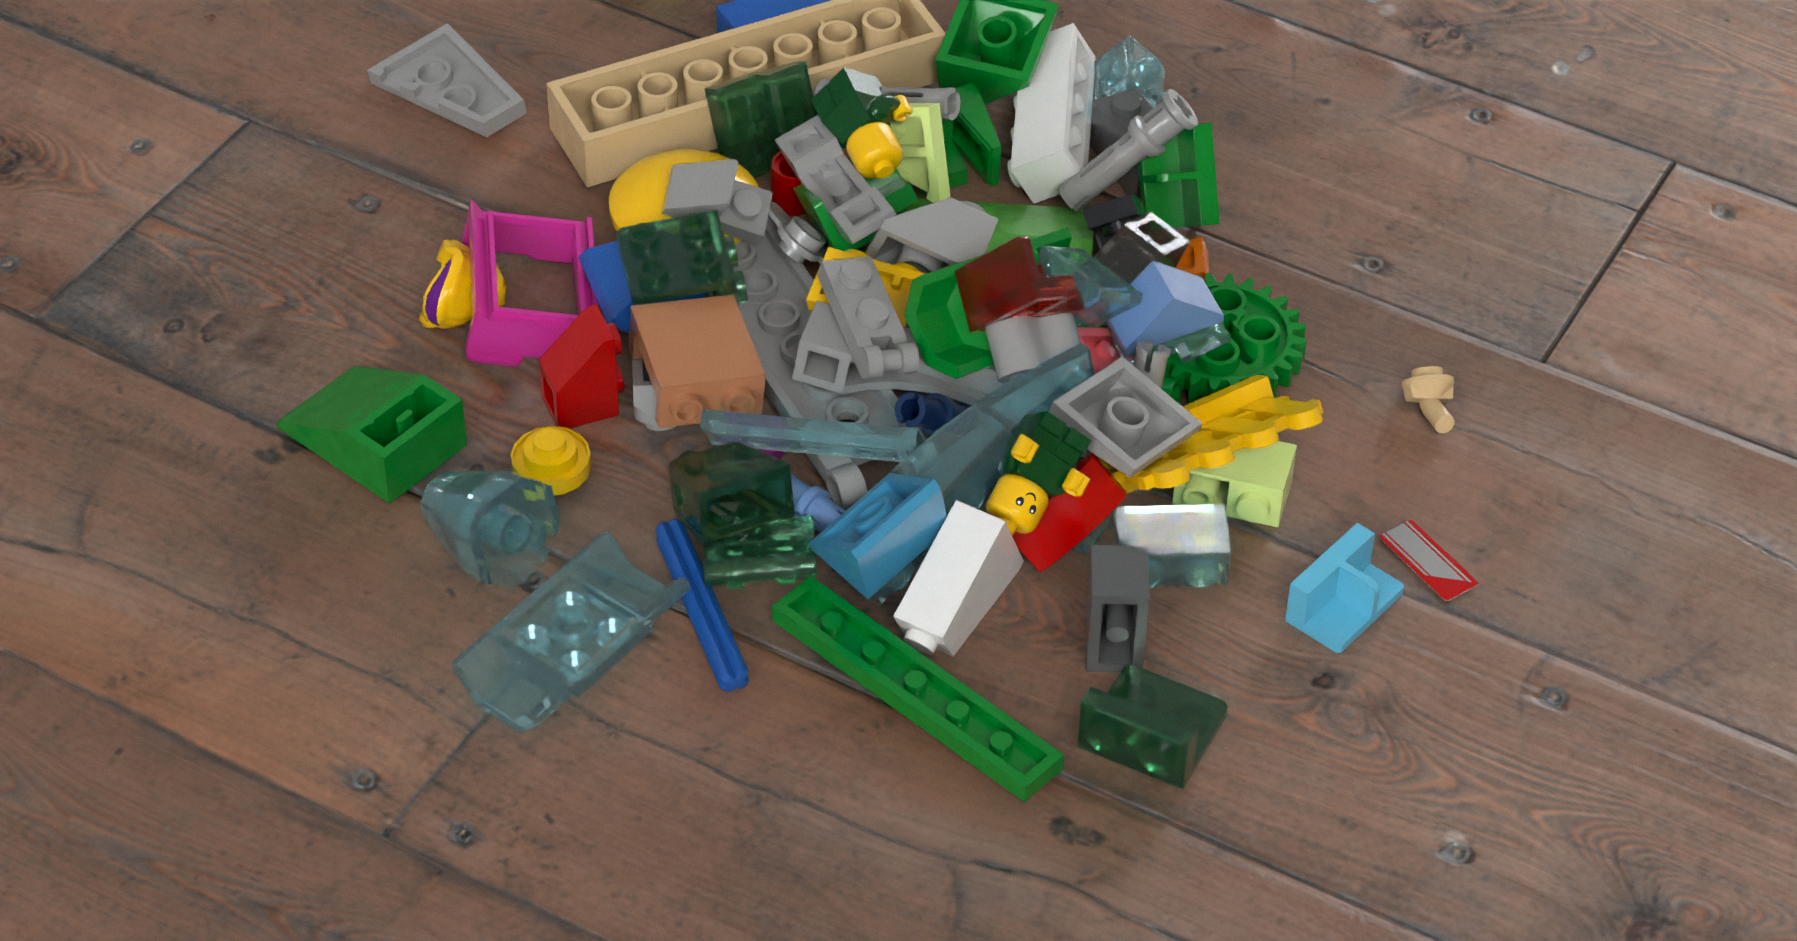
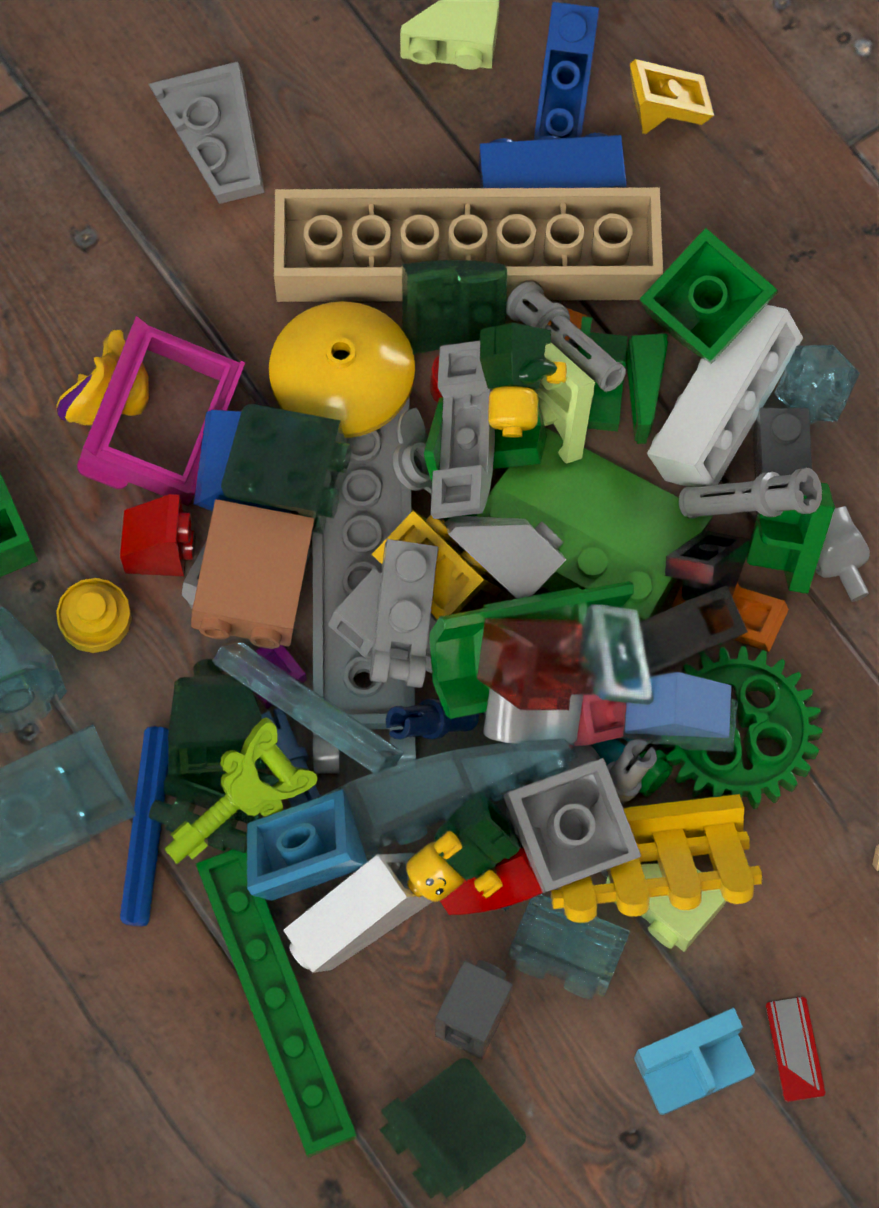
camera: 25 degrees right, 25 degrees up
(713, 186) = (354, 399): light grey slope -> none
(791, 511) = (244, 790): none -> lime piece
(1236, 198) = (844, 553): none -> light grey piece

